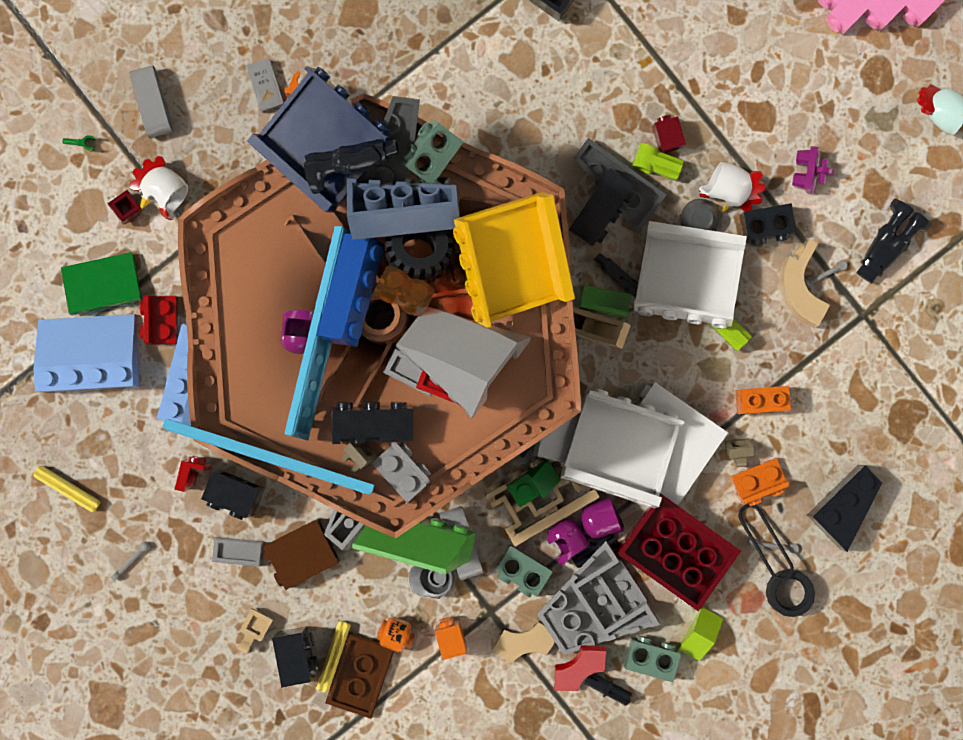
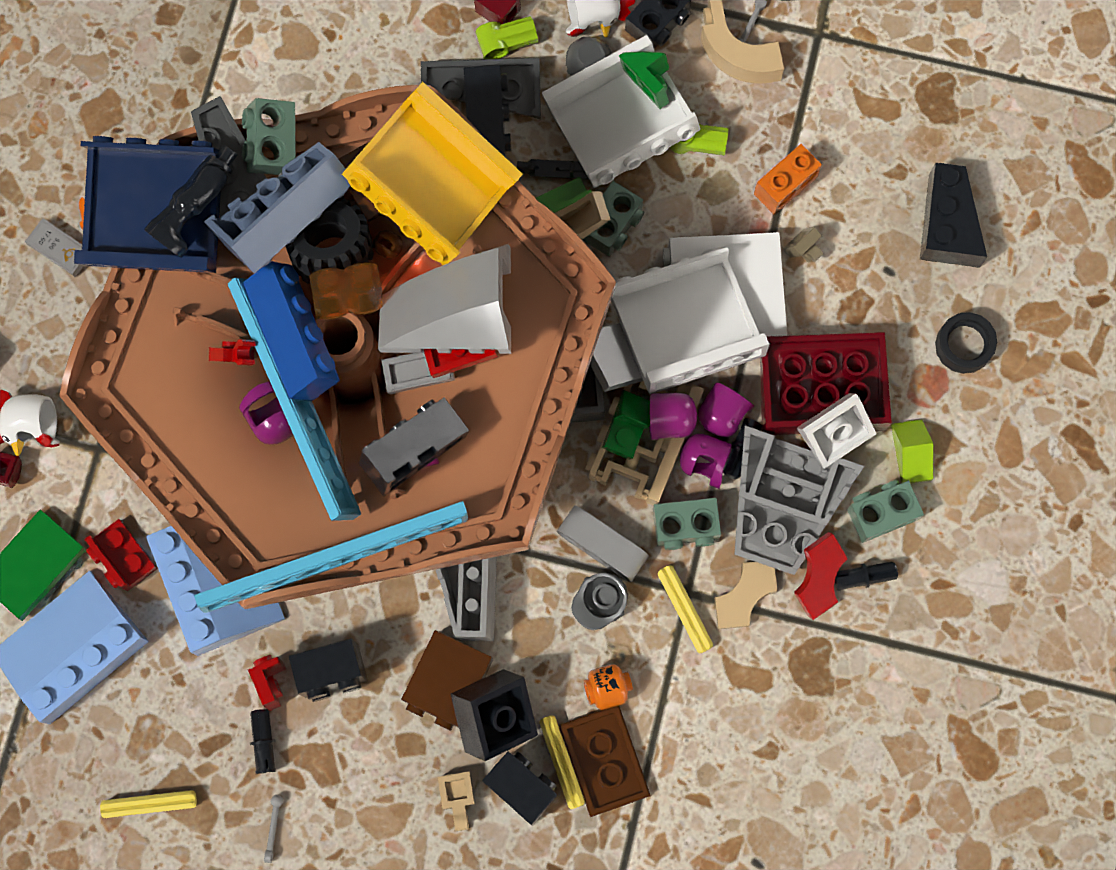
camera: 35 degrees left, 10 degrees down
(161, 505) = (262, 741): none -> black axle
(237, 551) = (379, 731): light grey tile -> none
(307, 273) = (234, 352): none -> red plate
(311, 601) = (494, 714): none -> black brick
(360, 454) = (426, 488): dark tan tile -> none
(402, 472) = (482, 472): light grey bracket -> none
(426, 545) = (554, 564): bright green slope -> none
(450, 638) = (666, 643): orange brick -> none
(481, 622) = (685, 609): none -> light yellow axle
(563, 501) = (671, 415): none -> magenta helmet
(632, 344) = (619, 222): none -> sand green brick
(659, 589) = (837, 429): none -> white slope
(726, 260) = (646, 72): none -> green slope
(757, 547) = (896, 322): black piece -> none
(759, 482) = (847, 259): orange bracket -> none
(793, 548) = (933, 300): light grey hinge -> none

